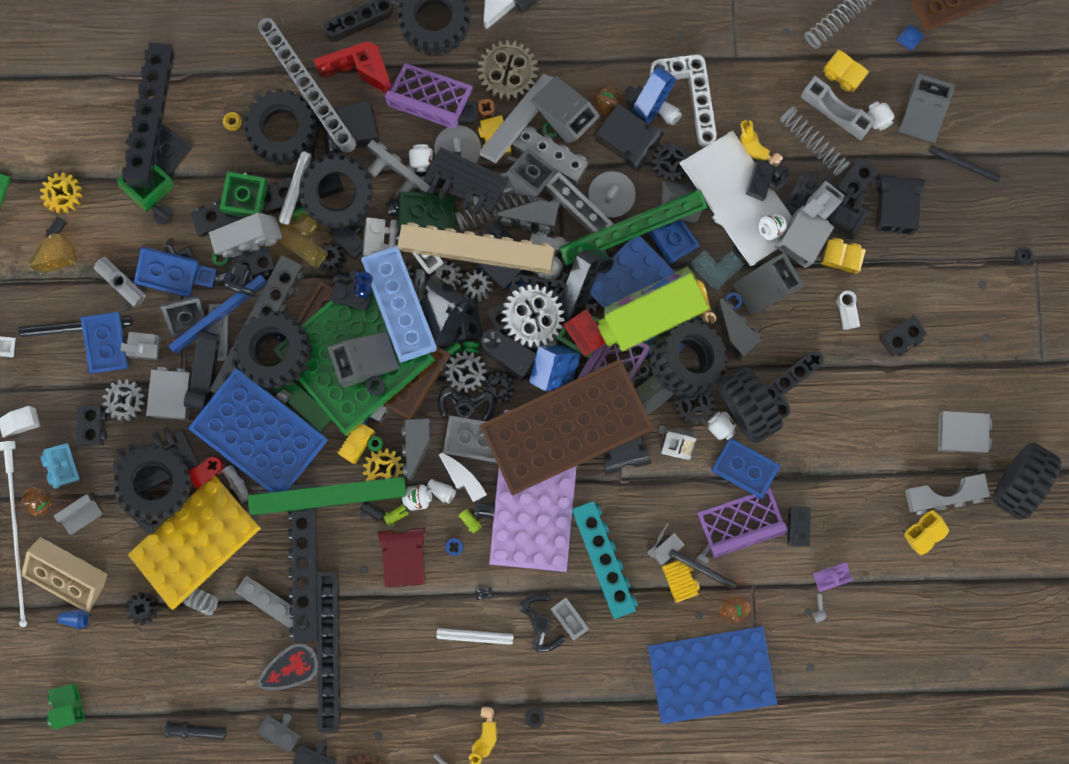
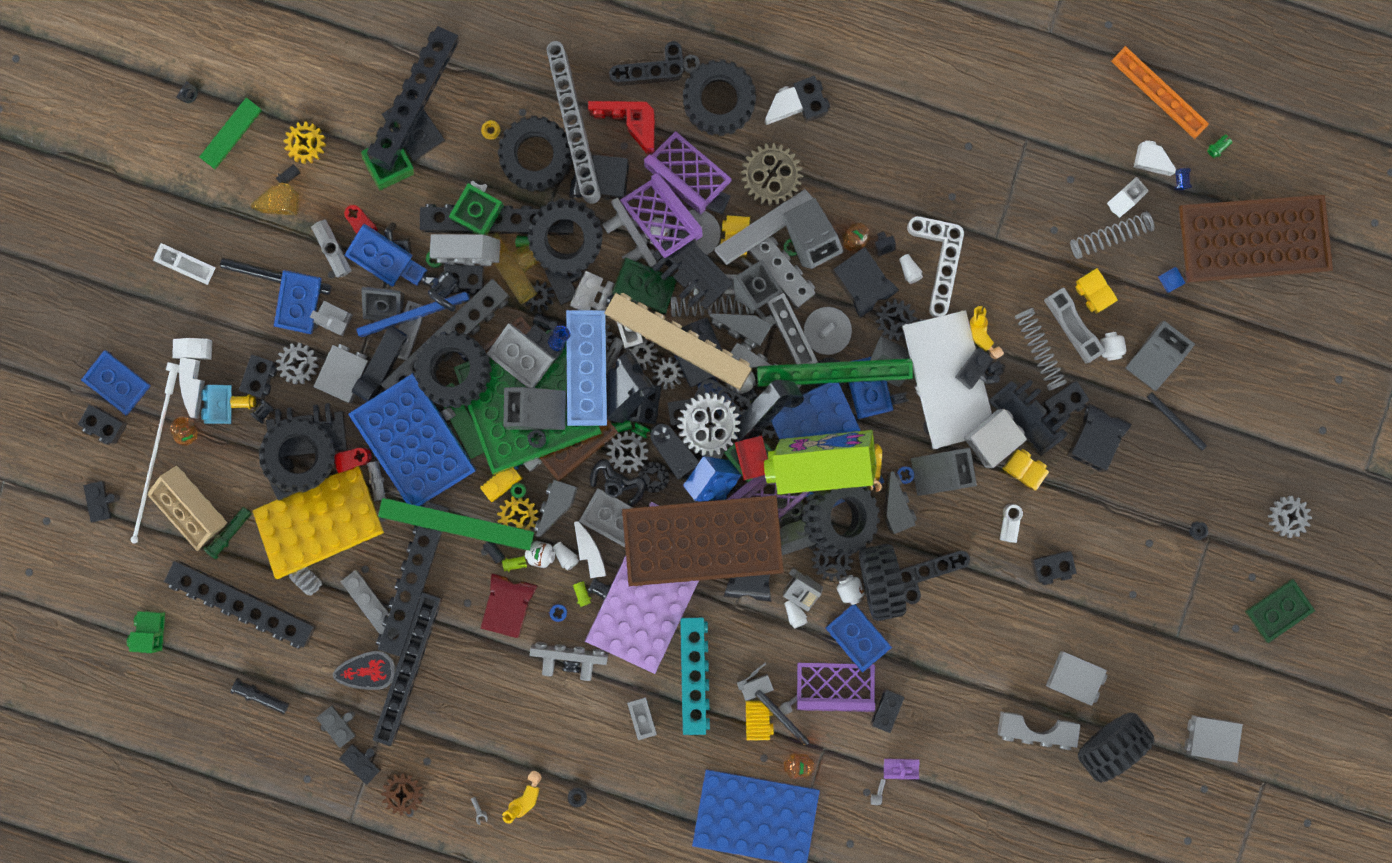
camera: 20 degrees right, 5 degrees up
(28, 456) = (191, 386): none -> white slope
(75, 619) = (183, 553): blue cone -> none
(77, 637) = (180, 570): none -> black brick
(79, 514) = (220, 456): light grey panel -> none
(84, 454) = (243, 401): none -> yellow pin
(105, 456) = (262, 411): none -> black bush
(108, 593) = (222, 540): none -> dark green pin
(136, 247) = (357, 222): none -> red piece
(140, 601) = (248, 558): black gear -> none
(162, 214) = (394, 197): black plate -> none
(293, 191) = (527, 218): white axle -> none
(332, 315) = (520, 356): none -> light grey plate
(392, 207) = (614, 268): black plate -> none
(431, 130) = (677, 210): none -> medium lavender fence
(461, 588) = (577, 654): none -> light grey plate
(474, 636) = (548, 702): white axle -> none
(485, 104) = (736, 211): dark orange bush -> none
(541, 623) = (613, 712): black piece -> none
(653, 95) = (902, 250): blue beam -> none
(679, 468) = (795, 614): none -> white cone
(701, 232) = (899, 398): none -> black bush
(717, 273) = (899, 442): clear light blue plate -> none
(773, 226) = (968, 418): white head -> none
(823, 201) = (1025, 412): light grey piece -> none
(926, 533) = (1005, 759): yellow brick -> none

